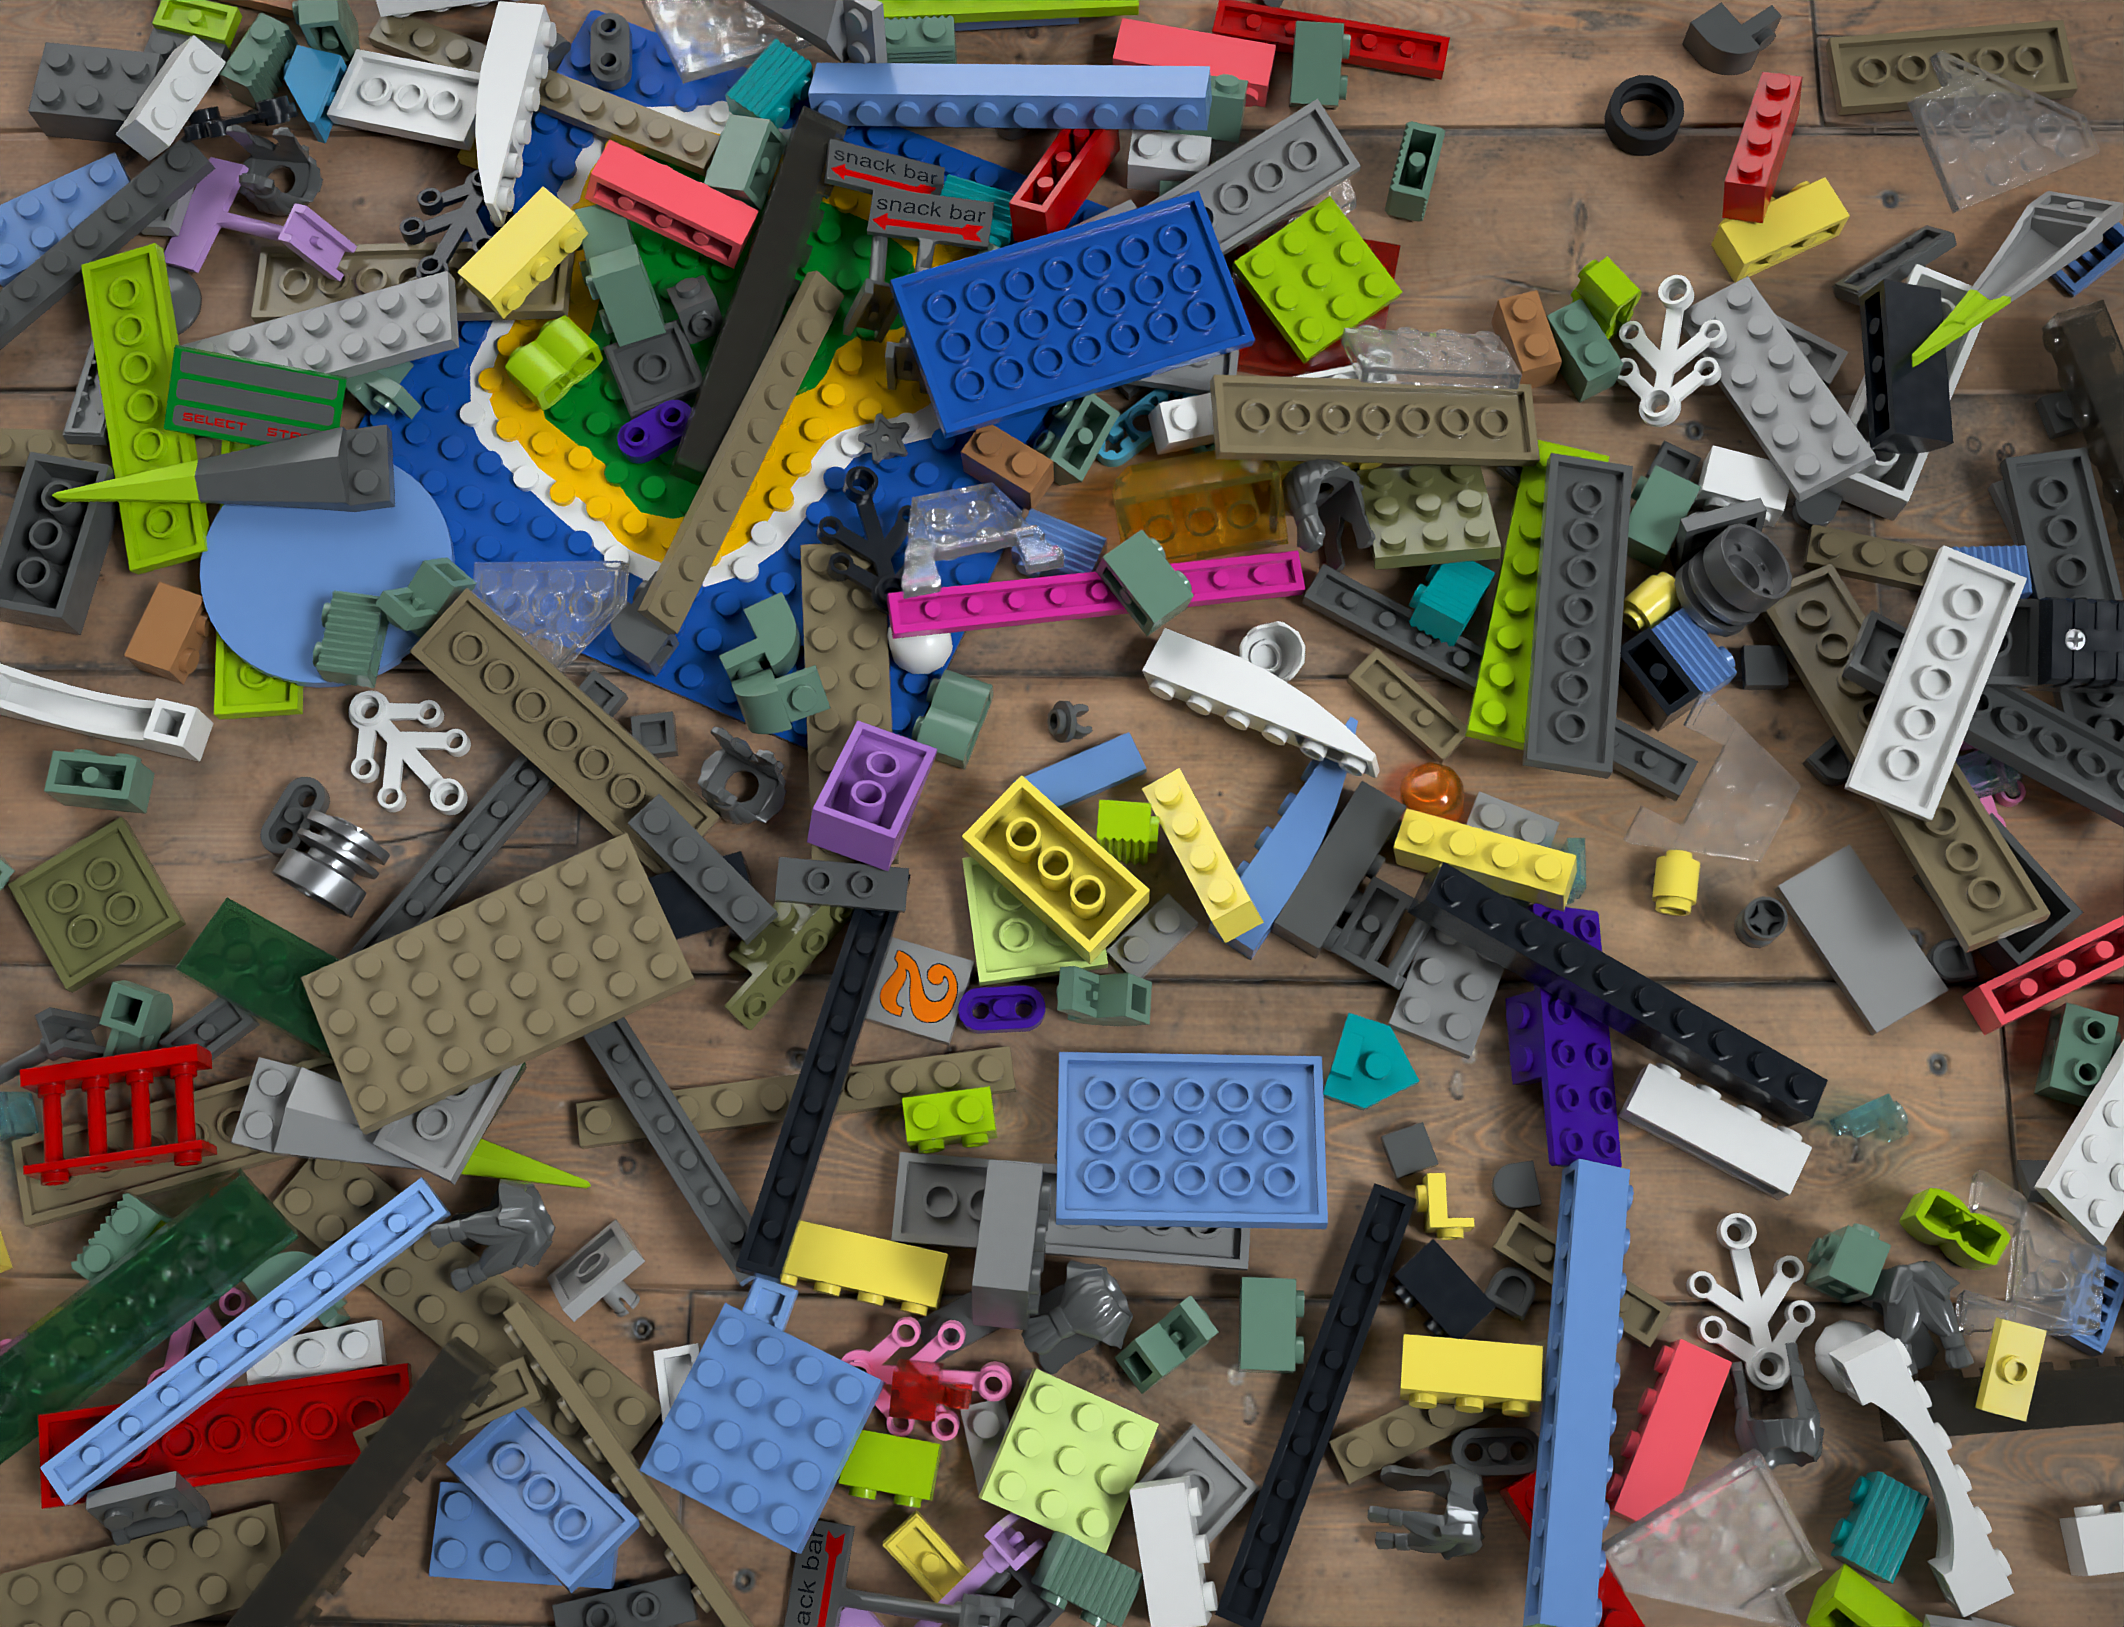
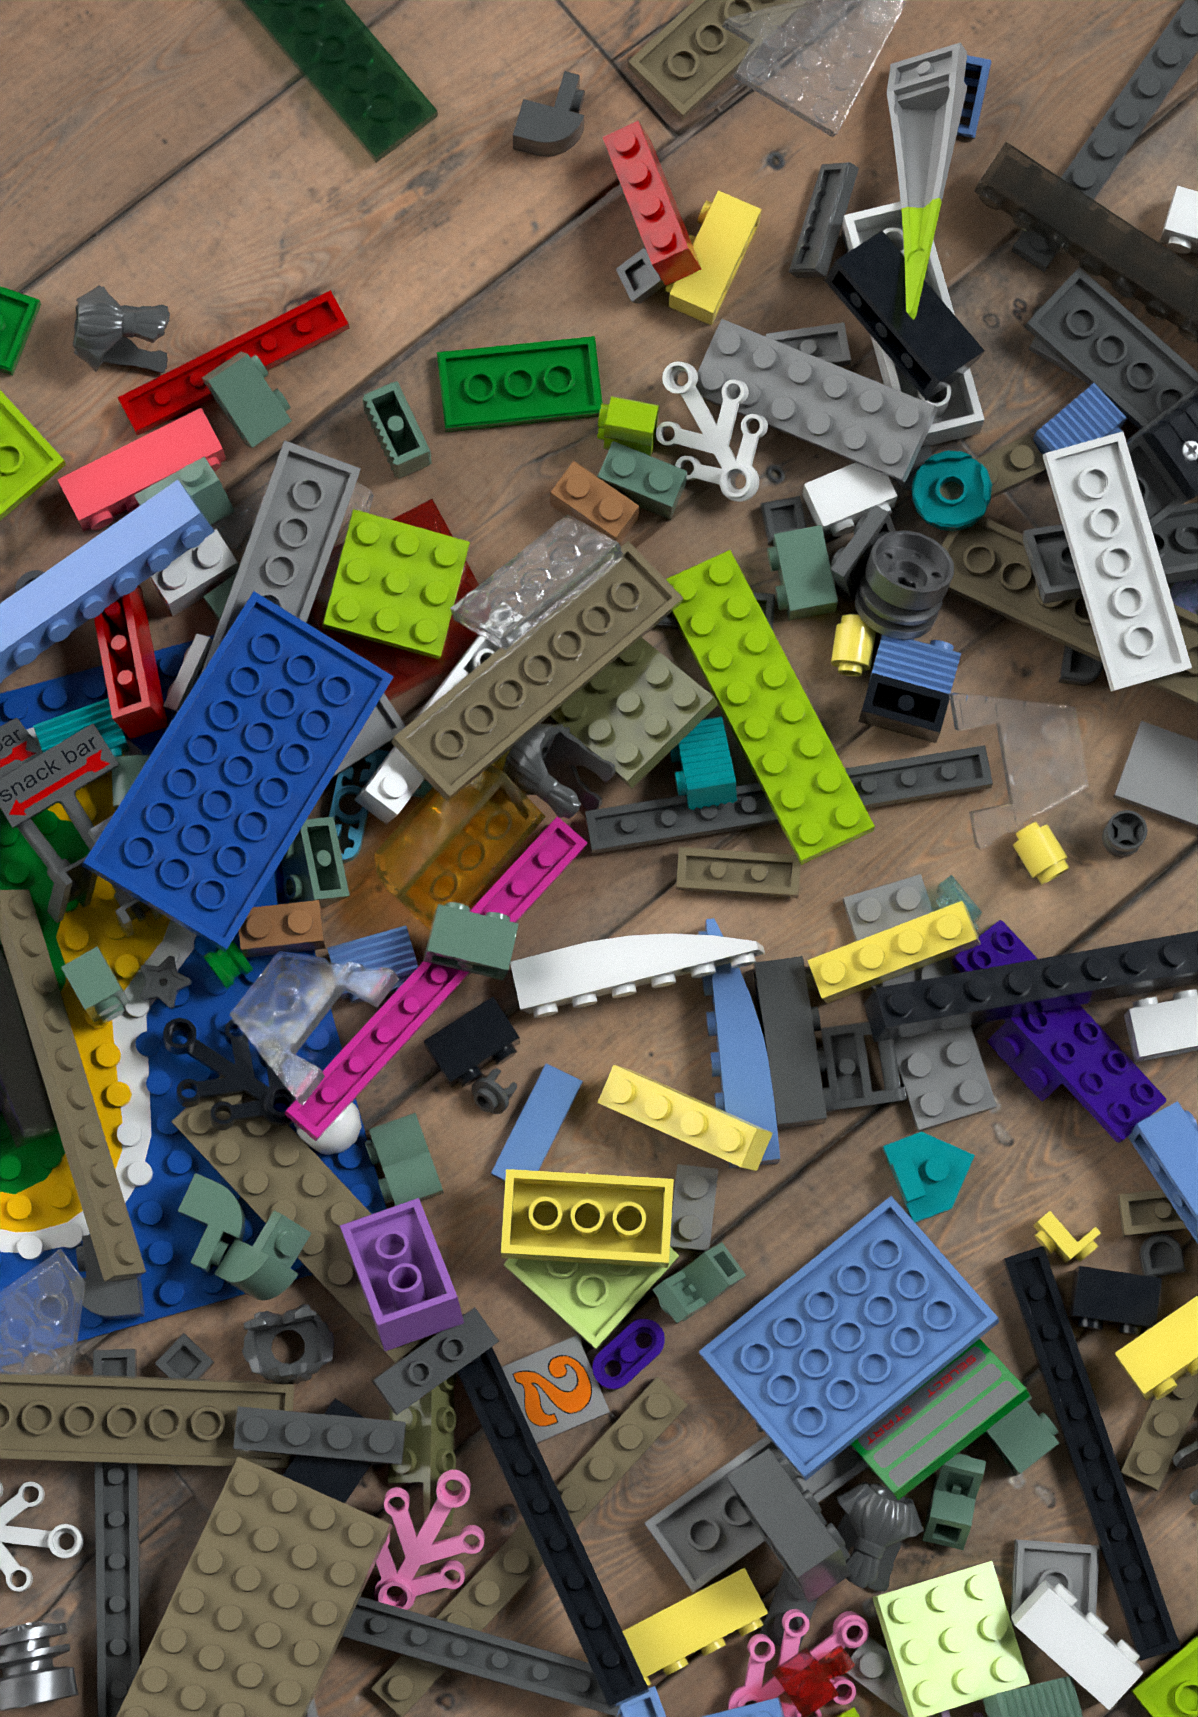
camera: 45 degrees left, 5 degrees up
(705, 1022) = (420, 1548): none -> bright pink plant
(829, 394) = (96, 986): none -> sand green brick
(945, 461) = (228, 964): none -> green wheel
(949, 1119) = (660, 1467): lime brick -> none
(1084, 670) = (473, 1043): none -> black brick
(1127, 830) = (612, 1144): lime brick -> none
(1210, 1266) = (940, 1419): none -> tile
(1275, 649) = (605, 913): white hair -> none
(1409, 1150) = (1008, 1213): dark grey tile -> none
(1433, 791) = (810, 927): clear orange hair -> none
(1516, 1186) = (1104, 1175): dark grey tile -> none
(1540, 212) = (520, 384): none -> green tile
(1578, 617) = (812, 704): dark grey plate -> none
(1652, 90) = (539, 210): black tyre -> none
(1705, 202) = (639, 277): none -> dark grey plate
(1764, 667) = (974, 629): dark grey tile -> none
(1827, 563) = (946, 513): none -> teal tile

